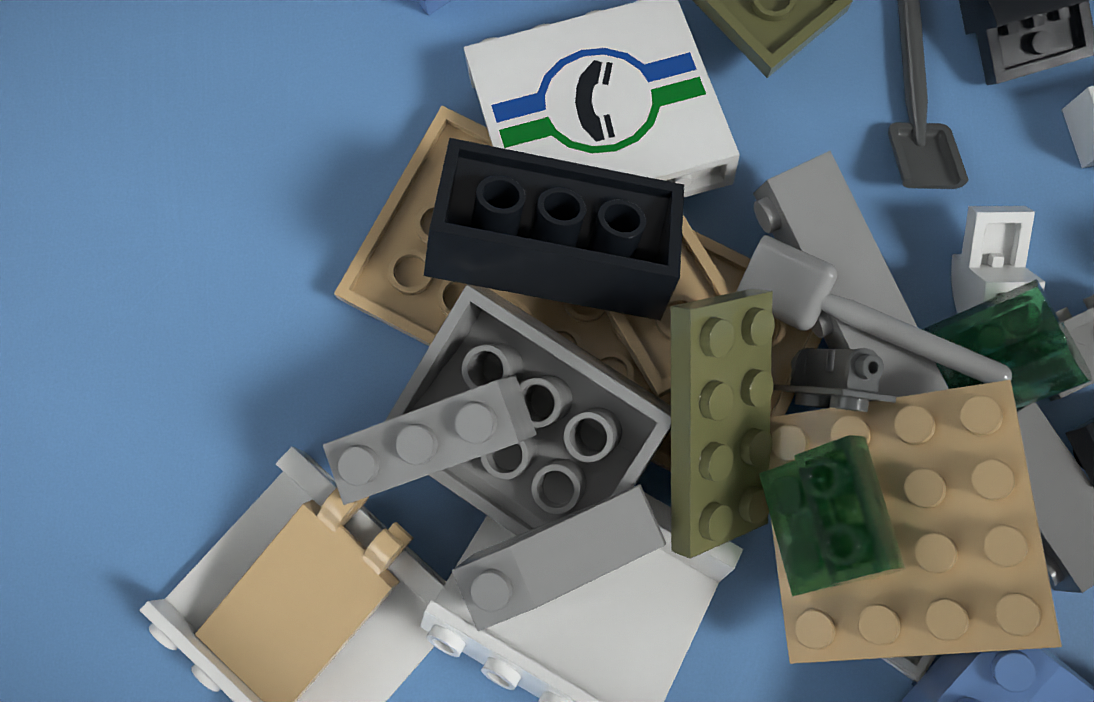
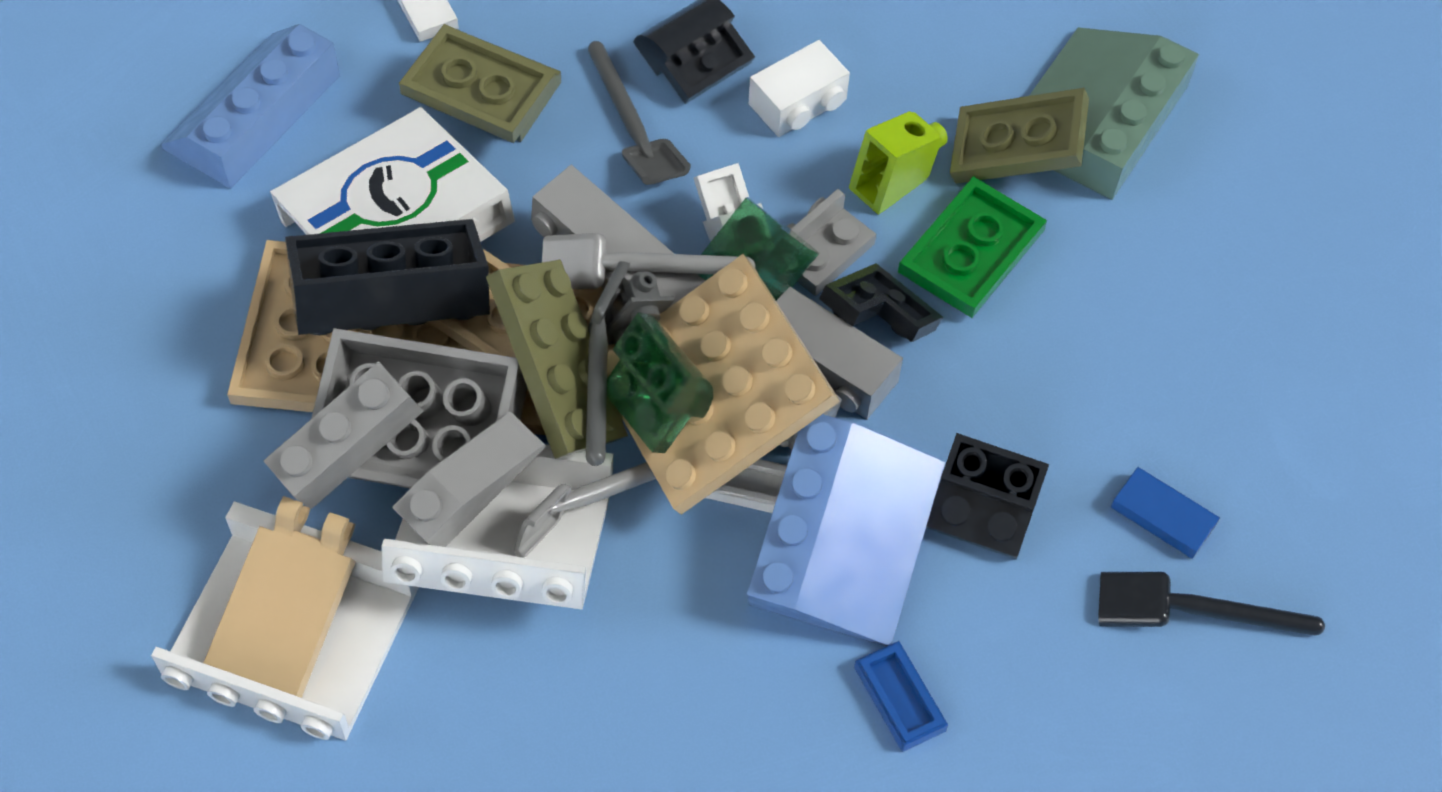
camera: 25 degrees left, 20 degrees down
(650, 609) = (551, 509): none -> light grey piece
(788, 385) = (598, 369): none -> dark grey piece

